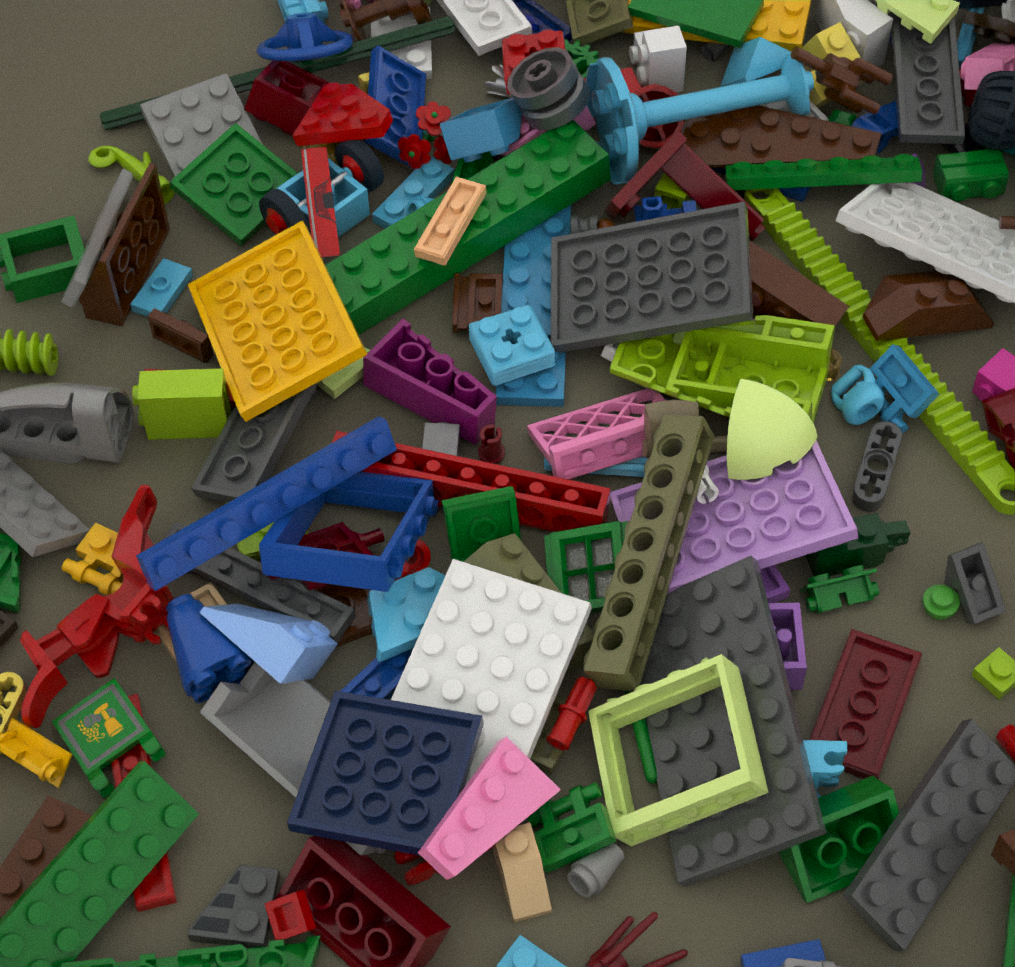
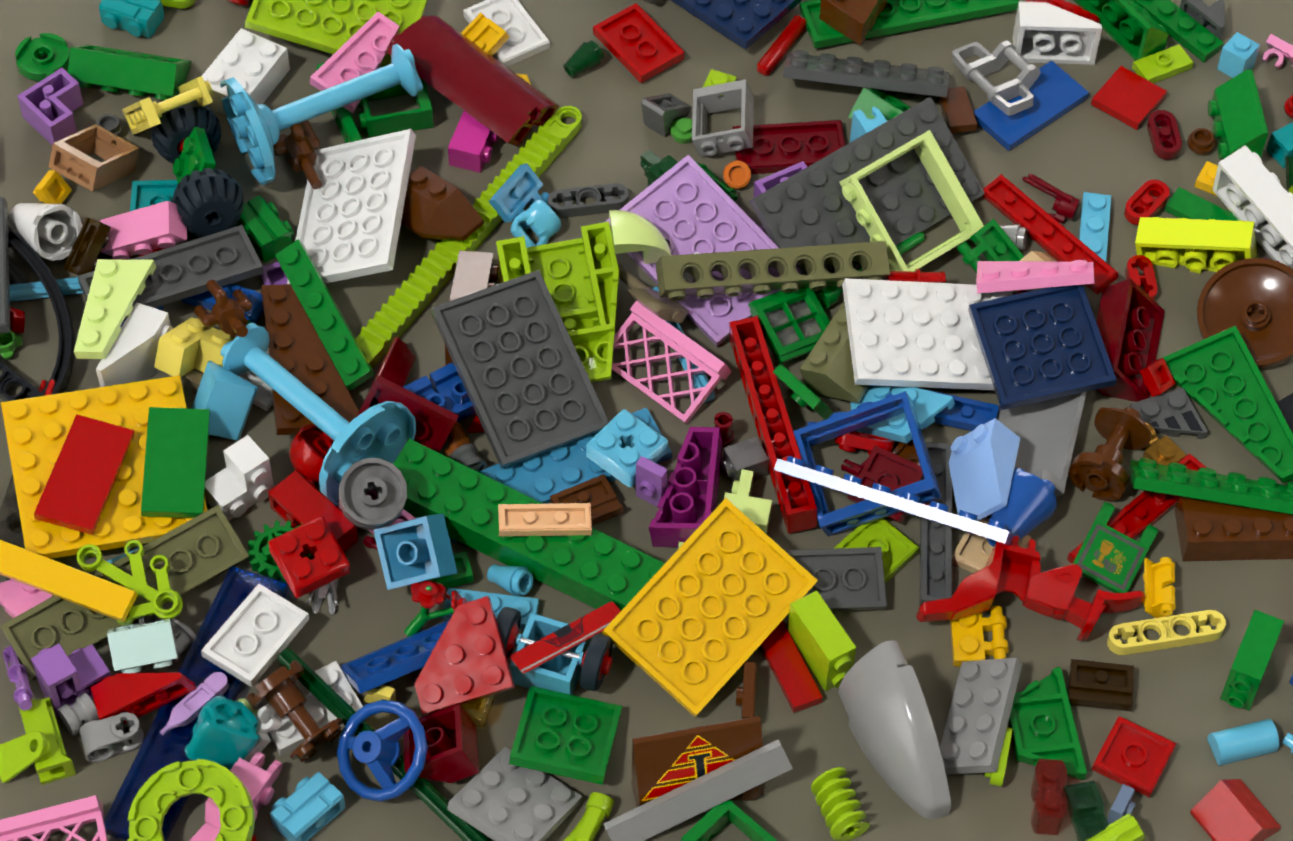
camera: 120 degrees left, 0 degrees up
(196, 868) = (1162, 450): none -> pearl gold plate
(202, 768) = (1102, 469): none -> reddish brown piece
(403, 429) = (756, 509): none -> yellowish green brick
(458, 342) = (650, 481): none -> medium lavender plate
(571, 918) = (1046, 230): none -> red tile
(832, 924) = (958, 111): none -> reddish brown tile
(841, 622) = (737, 175): none -> orange tile
(936, 615) = (706, 101): none -> light grey window

